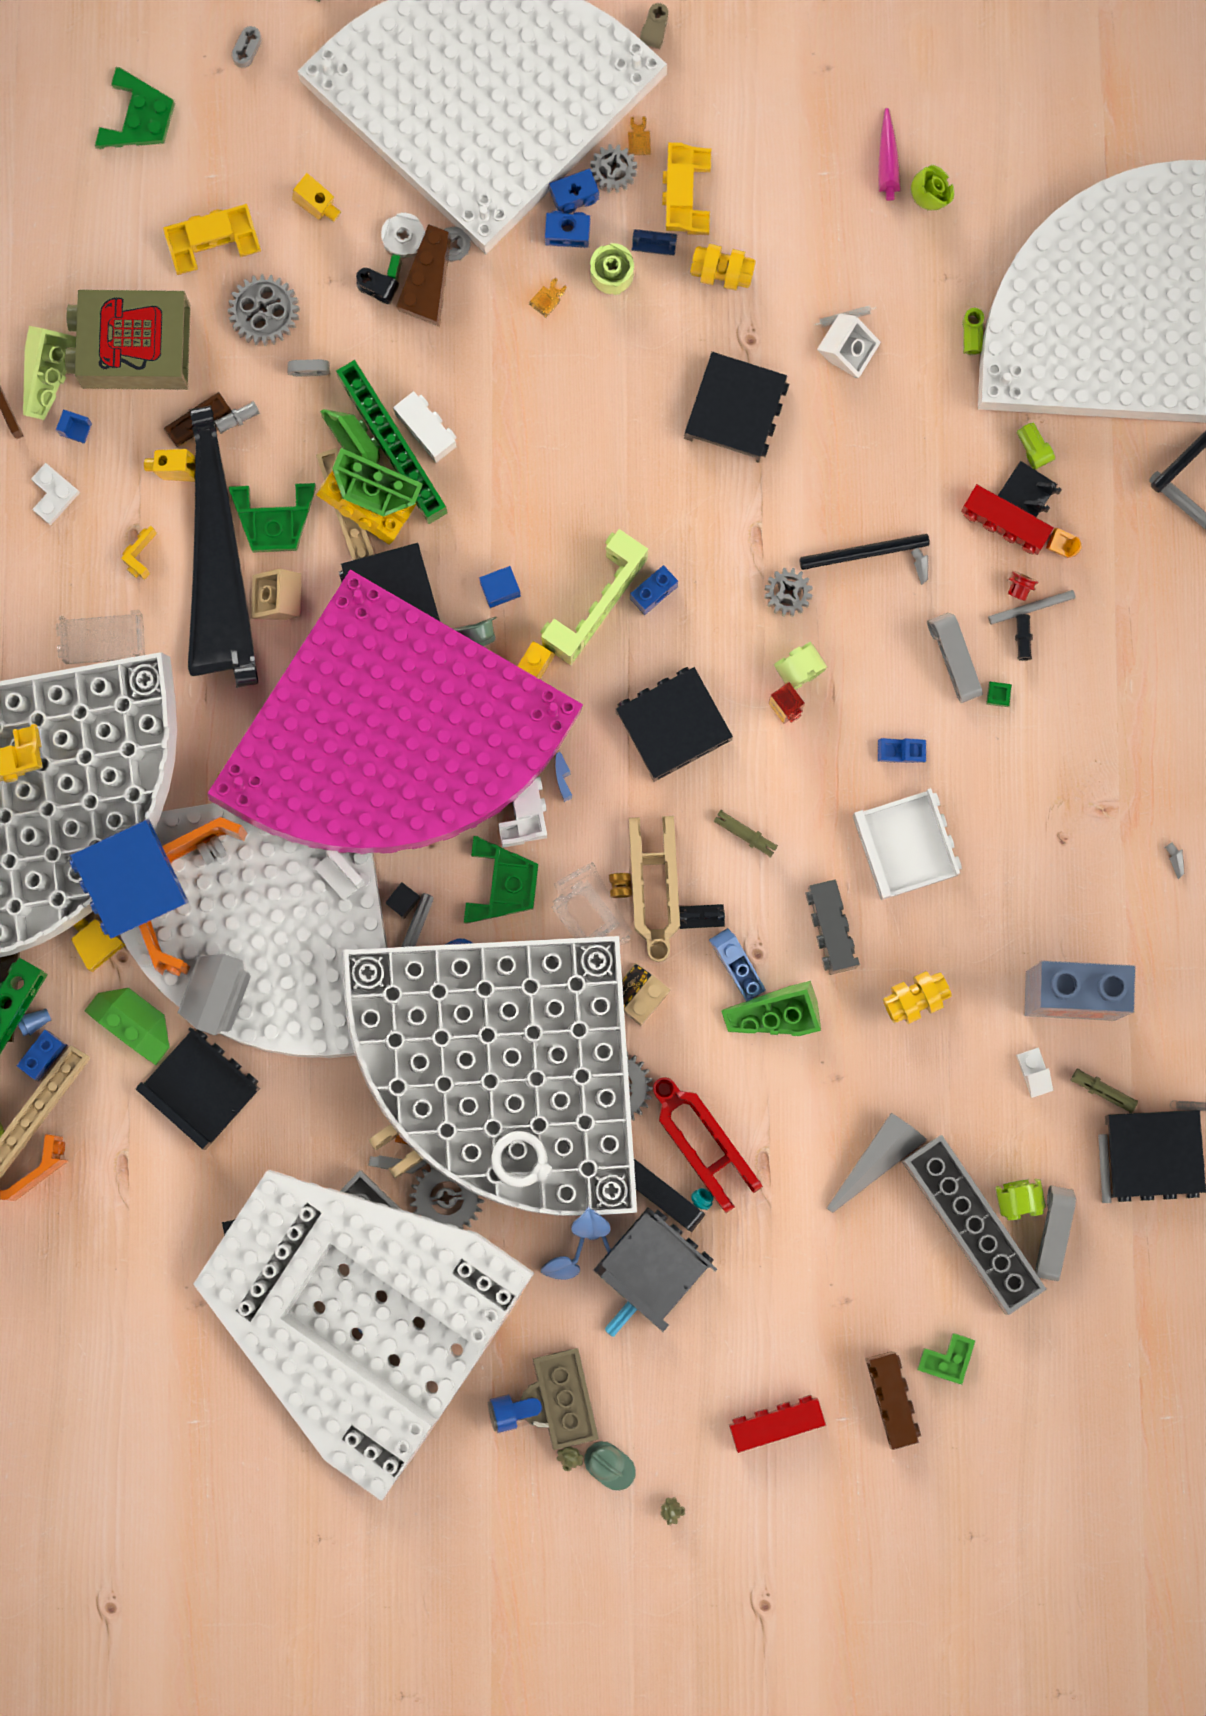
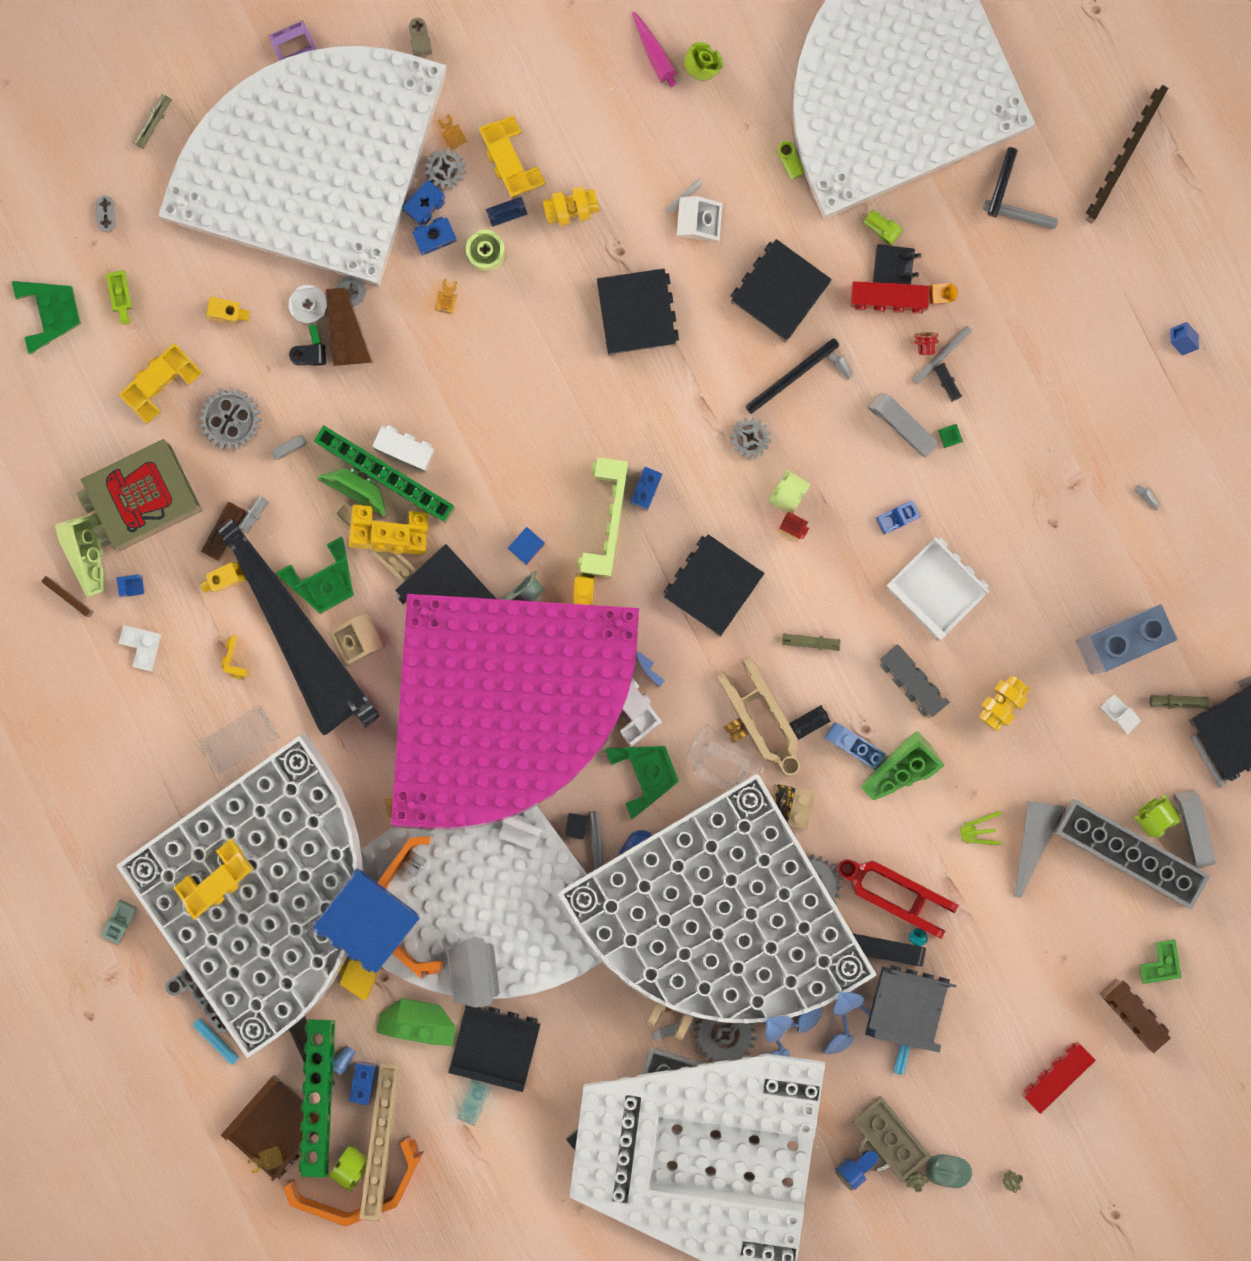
camera: 25 degrees left, 5 degrees up
(145, 1135) = (473, 1102): none -> clear light blue slope
(217, 132) = (119, 294): none -> lime plate
(373, 485) = (391, 518): bright green wedge -> none
(505, 1211) = (779, 1025): none -> medium blue plant
(541, 1170) = (791, 982): white piece -> none
(812, 1116) = (968, 832): none -> lime plant
(897, 457) = (780, 289): none -> black panel

